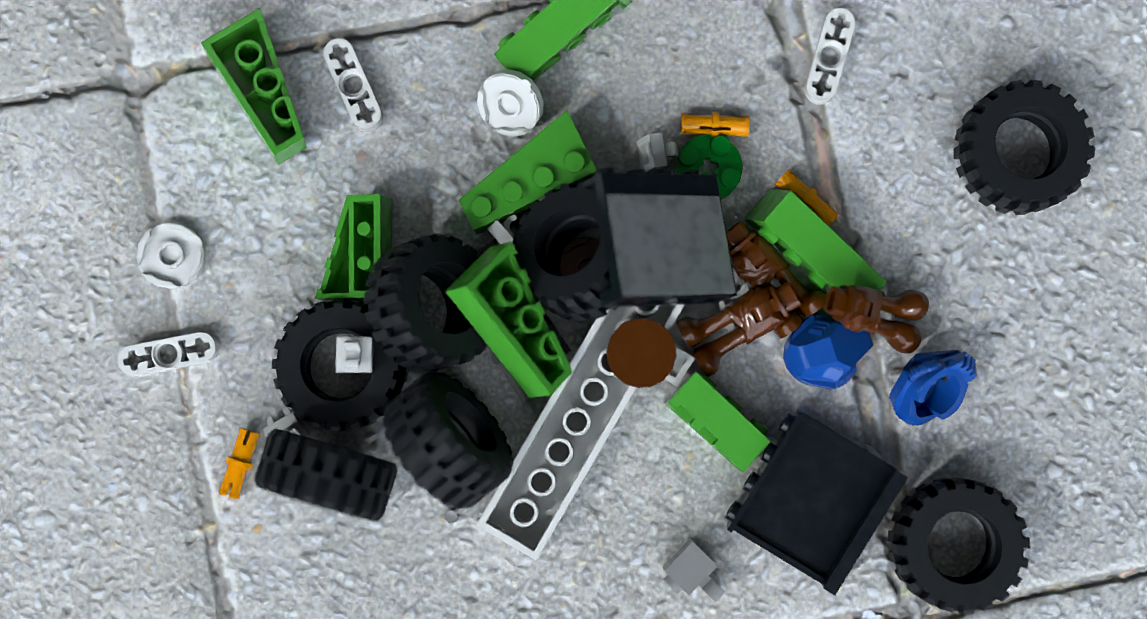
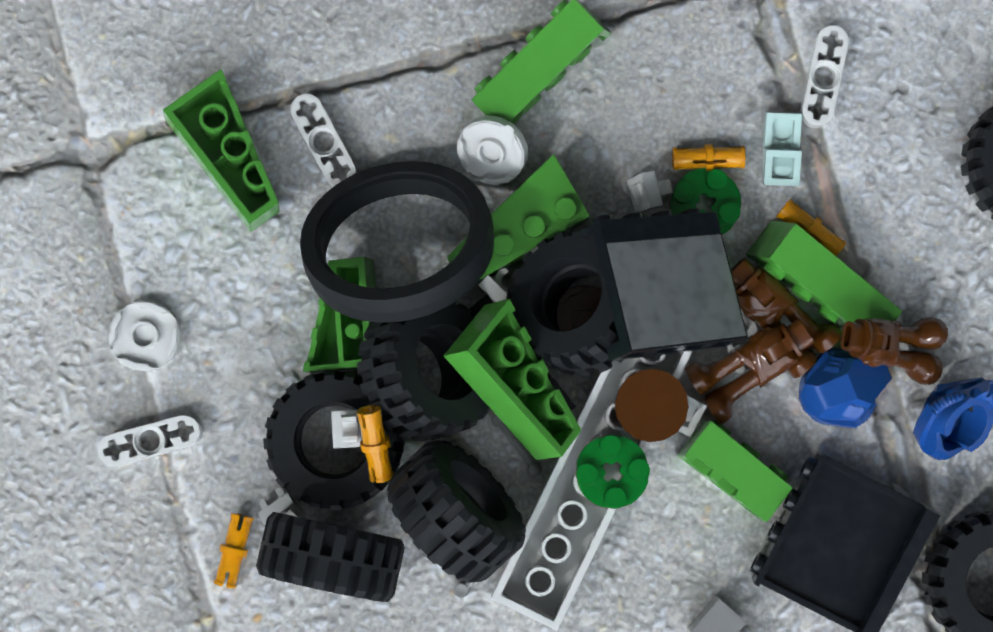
camera: 10 degrees left, 0 degrees up
(375, 370) = (375, 443): none -> light orange pin
(423, 234) = (407, 301): none -> black tyre
(619, 413) = (633, 469): none -> green plate
(785, 121) = (782, 148): none -> light aqua slope

